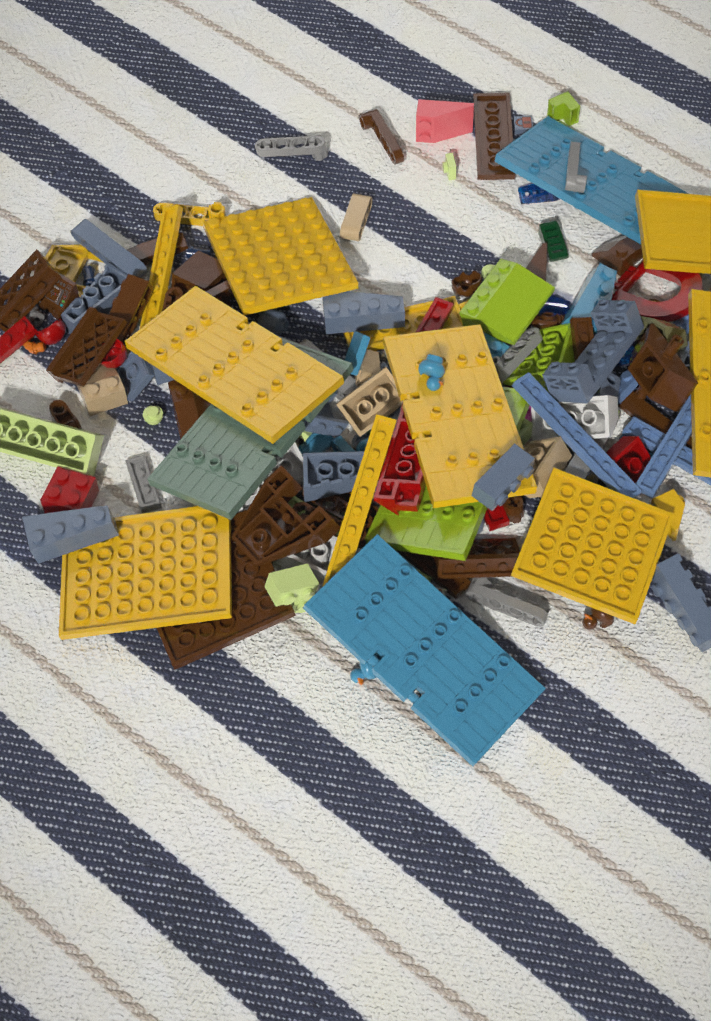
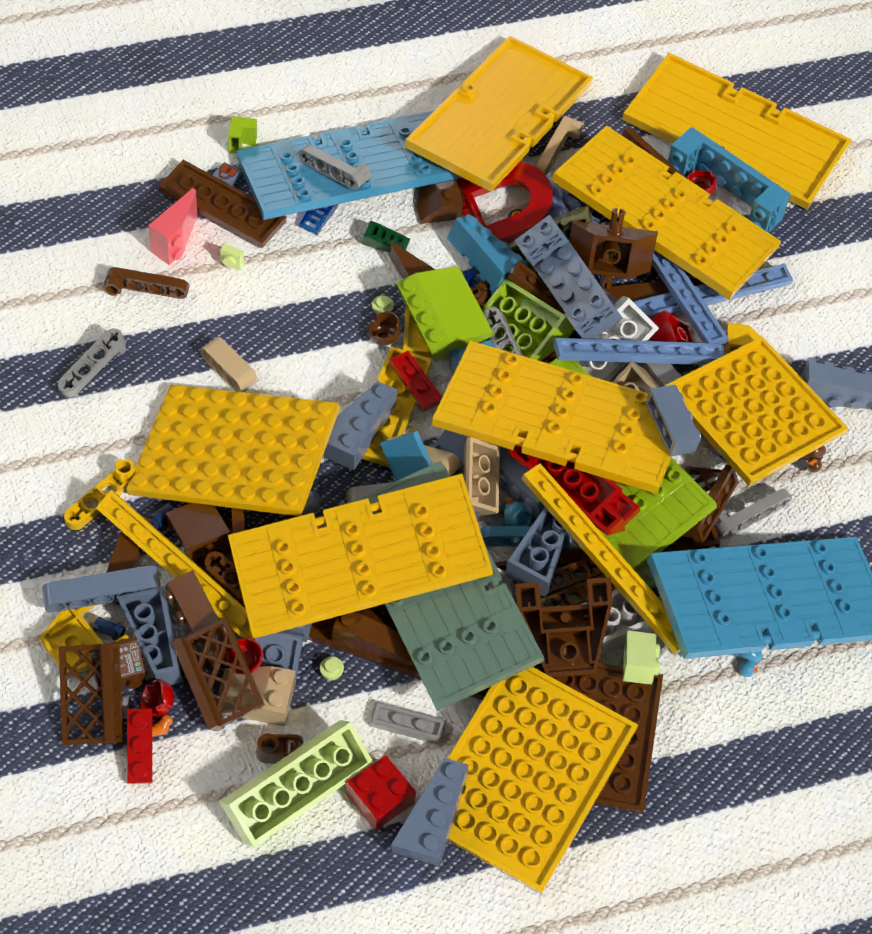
camera: 65 degrees left, 0 degrees up
(432, 367) = (511, 399): dark azure animal -> none

